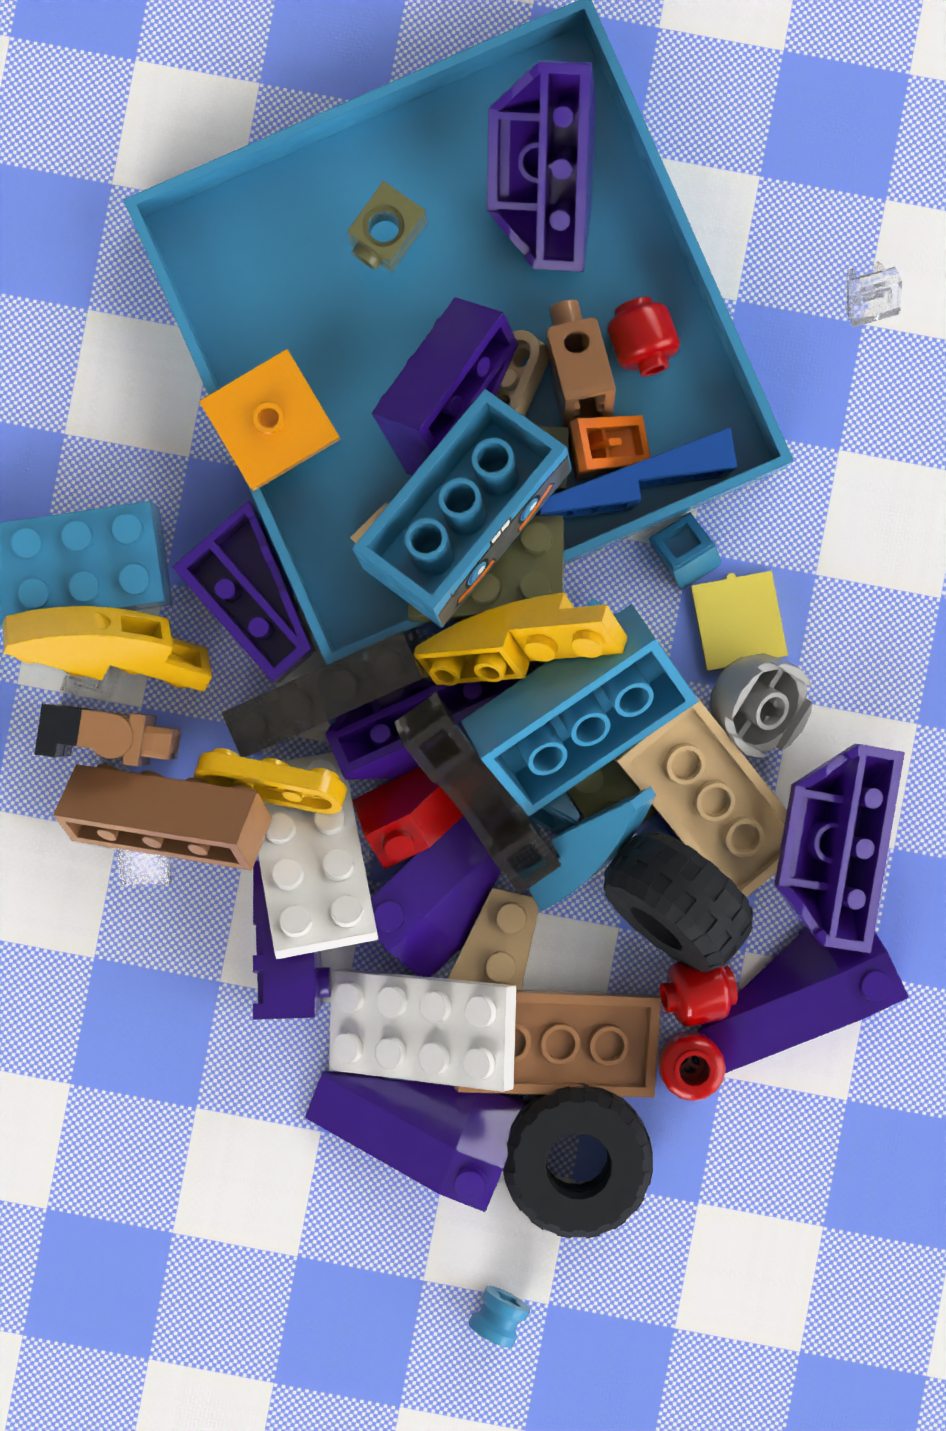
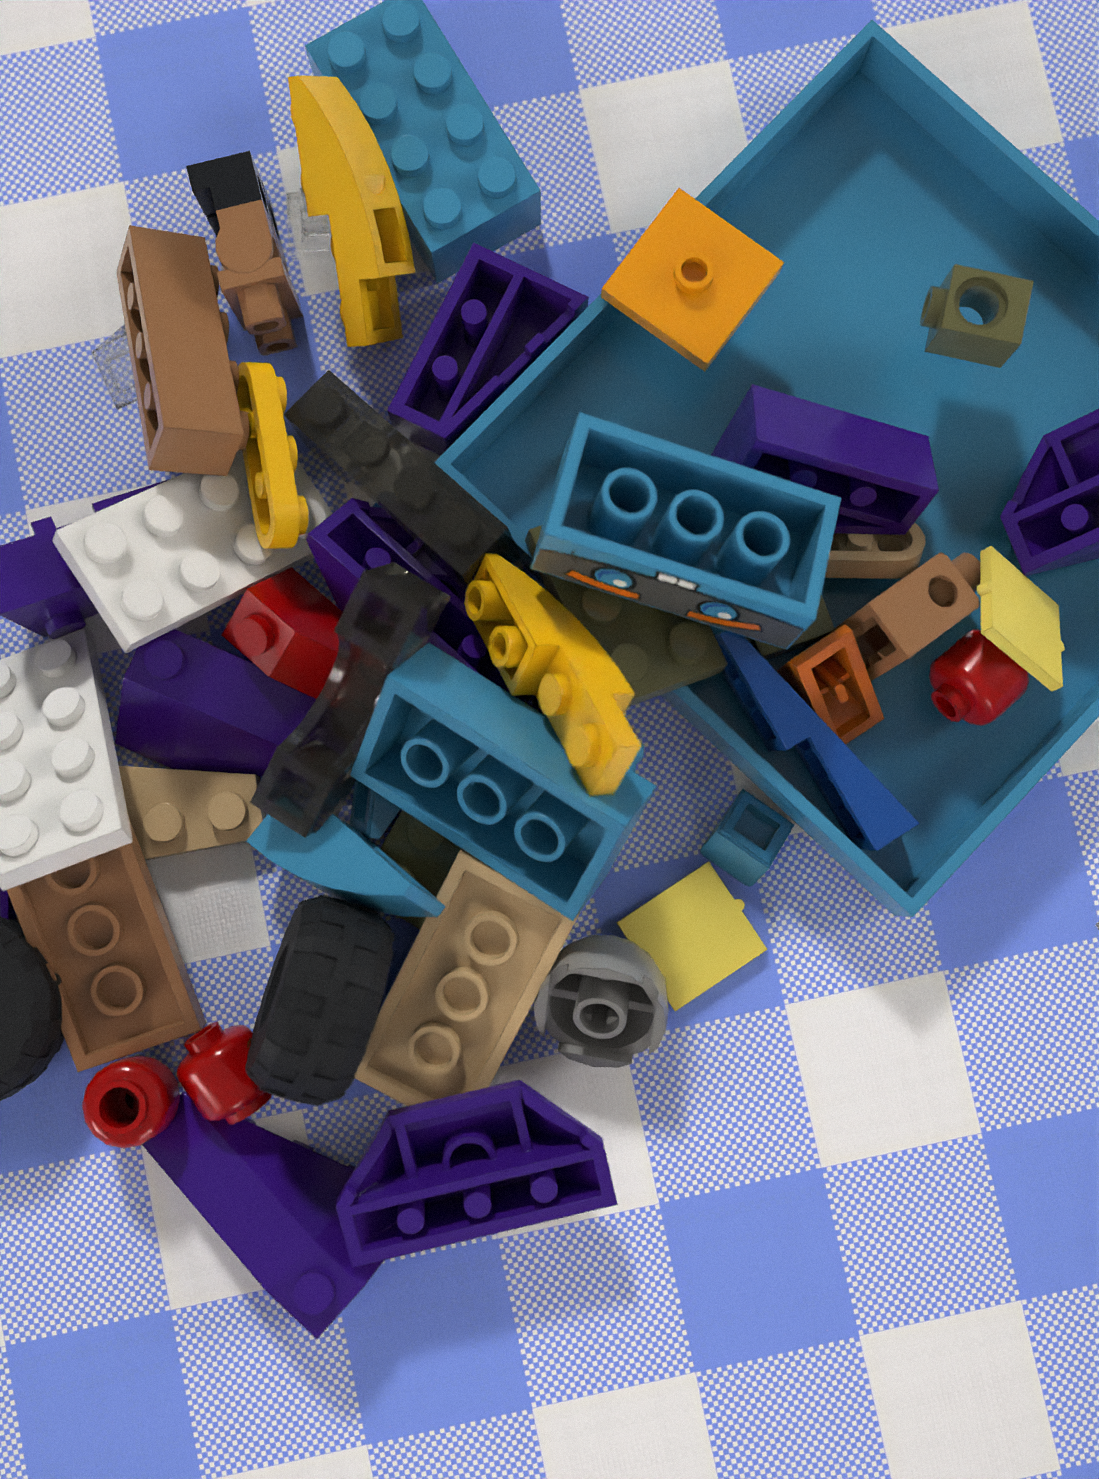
camera: 70 degrees right, 5 degrees down
(615, 290) = (1020, 619): none -> light yellow piece

